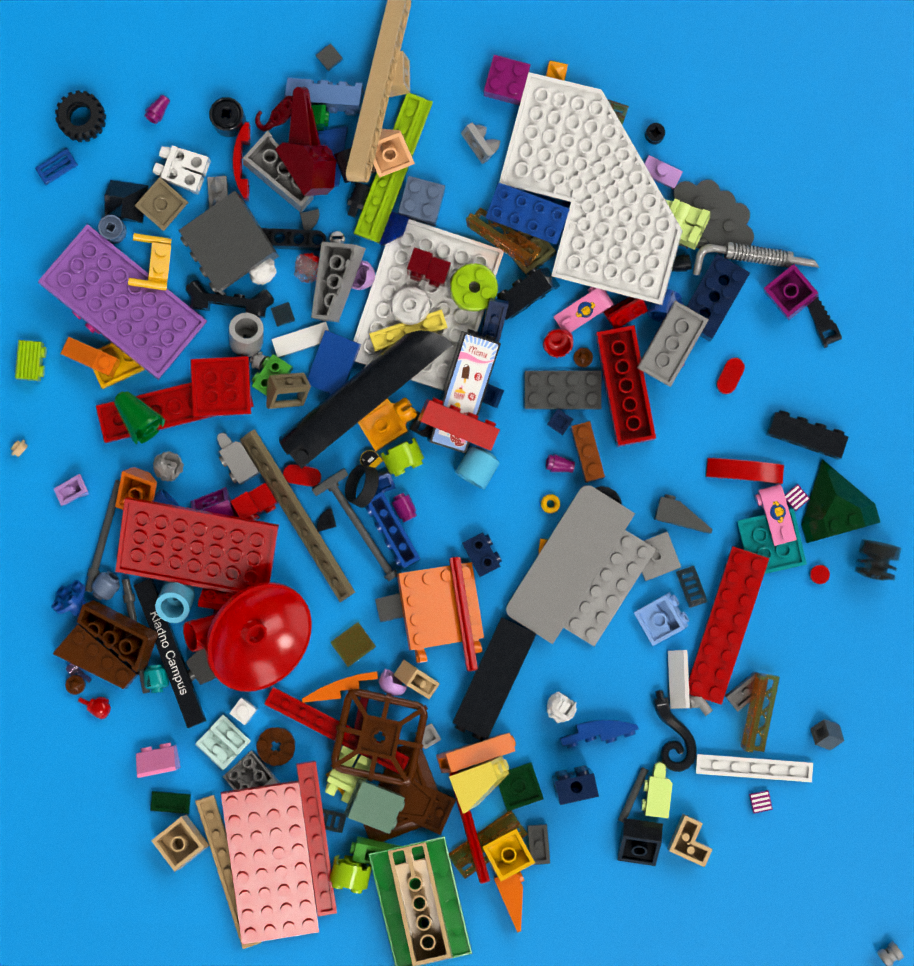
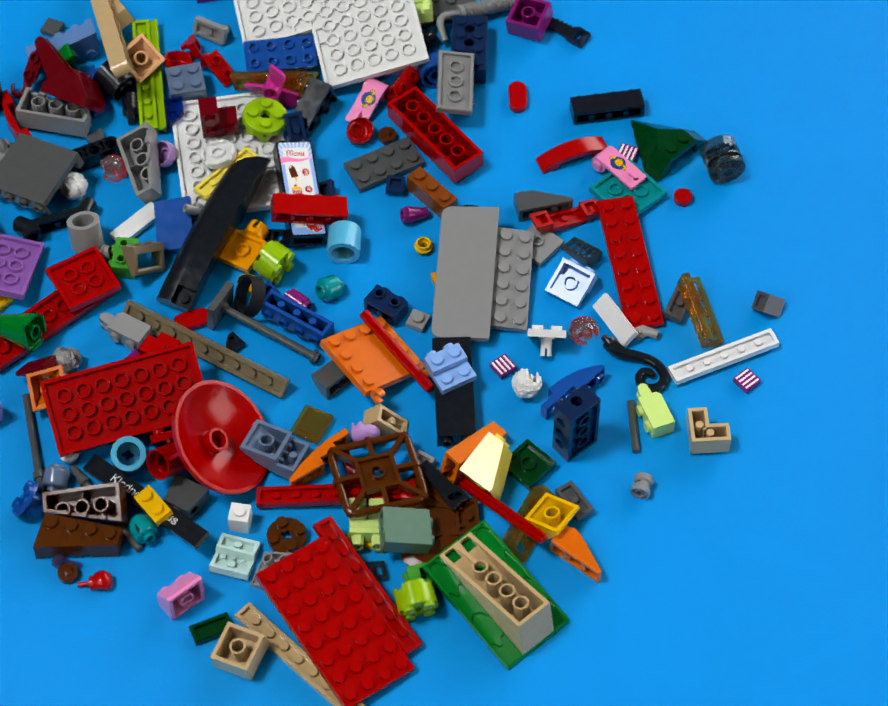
camera: 30 degrees left, 30 degrees down
(138, 462) = (37, 365): none -> dark red slope
(172, 666) = (153, 505): none -> yellow plate
(283, 314) = (110, 213): clear smoke tile -> none
(305, 659) = (275, 448): none -> sand blue slope
(358, 363) = (192, 209): none -> light grey arm
(428, 166) = (177, 58): none -> red hair
(432, 772) = (444, 486): none -> black piece
(440, 508) = (329, 288): none -> teal head
(450, 156) = (193, 45): none -> red tile
(462, 193) = (218, 66): none -> red bracket
(498, 256) = (274, 88): none -> dark pink piece
(498, 662) = (449, 368): none -> light blue plate
(503, 583) = (418, 321): none -> light grey plate
(552, 672) = (503, 366): none -> magenta tile
(605, 861) = (641, 485): none -> light grey wheel
(606, 666) = (546, 336): none -> white plate
(640, 842) = (663, 456): black slope -> none
(642, 677) = (582, 330): none -> clear piece
(696, 542) = (565, 219): none -> red slope

